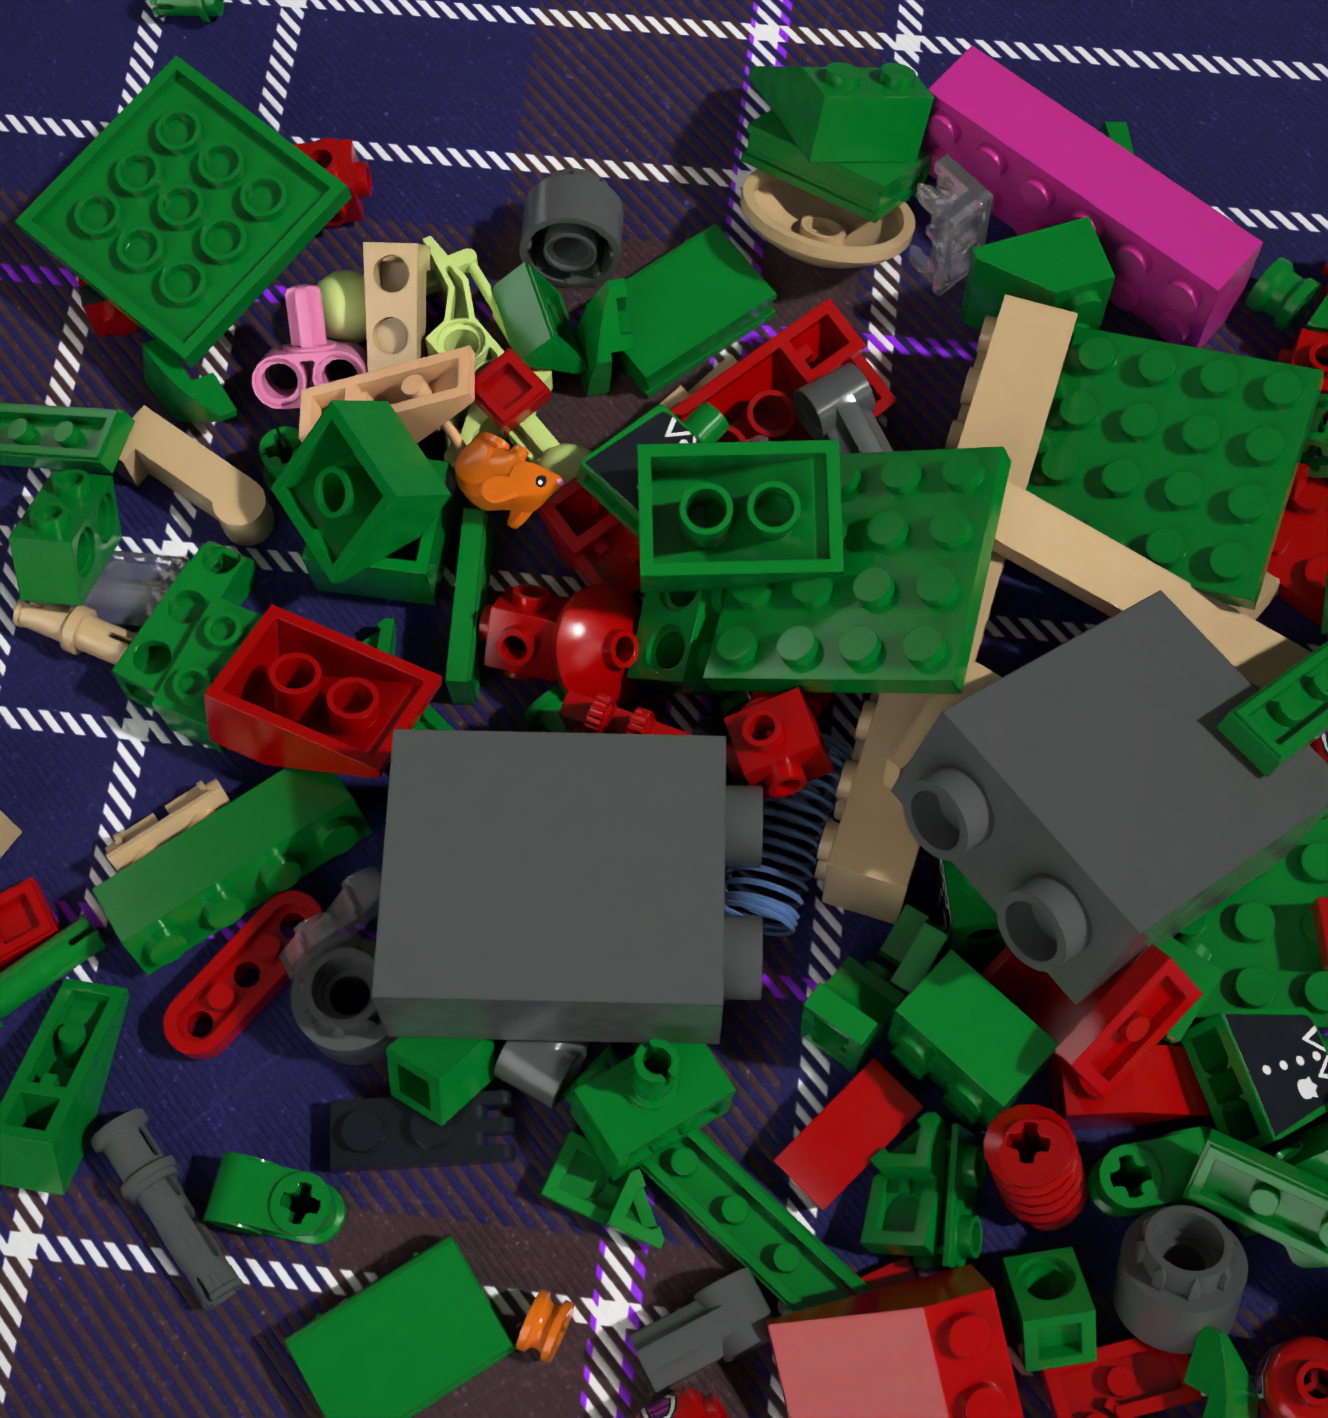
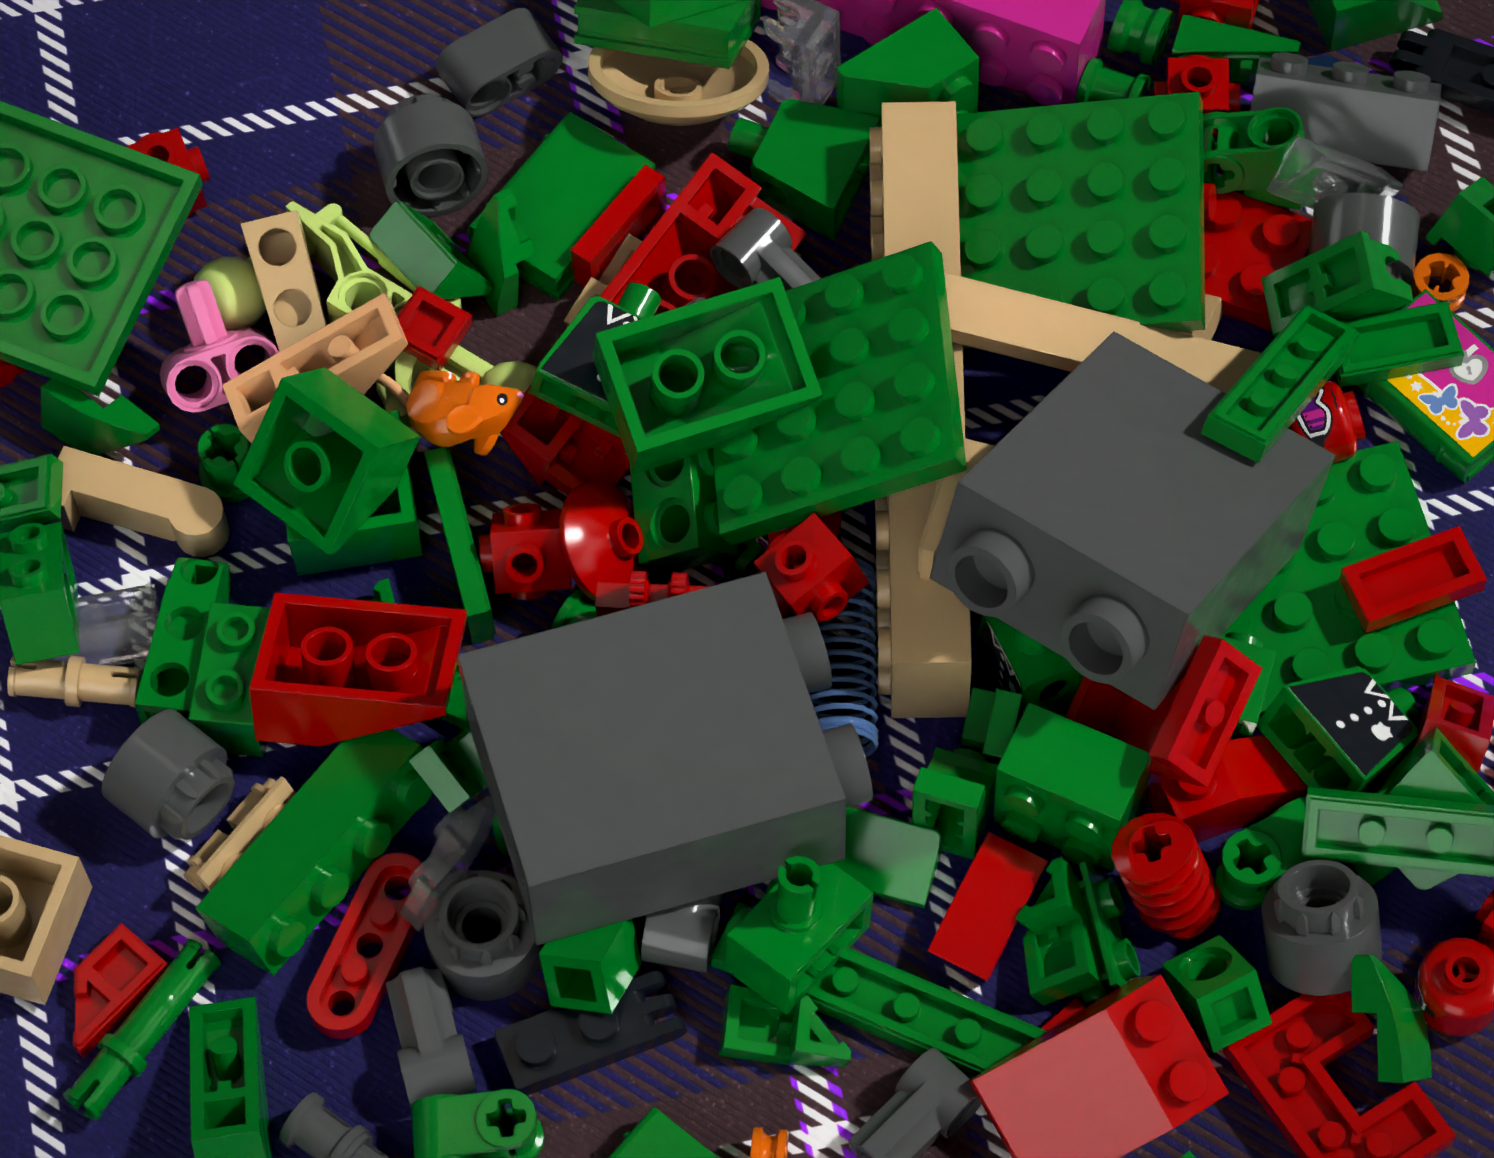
camera: 20 degrees left, 5 degrees down
(118, 751) = (169, 777): none -> dark grey piece
(265, 1108) = (432, 1052): none -> dark grey piece
(362, 832) = (451, 770): none -> green slope
(668, 160) = (498, 62): none -> dark grey beam
(735, 335) = (630, 213): none -> red tile
(768, 1049) = (891, 856): none -> green slope
(921, 332) = (808, 161): none -> green torso
(1232, 337) = (1107, 84): none -> green bush

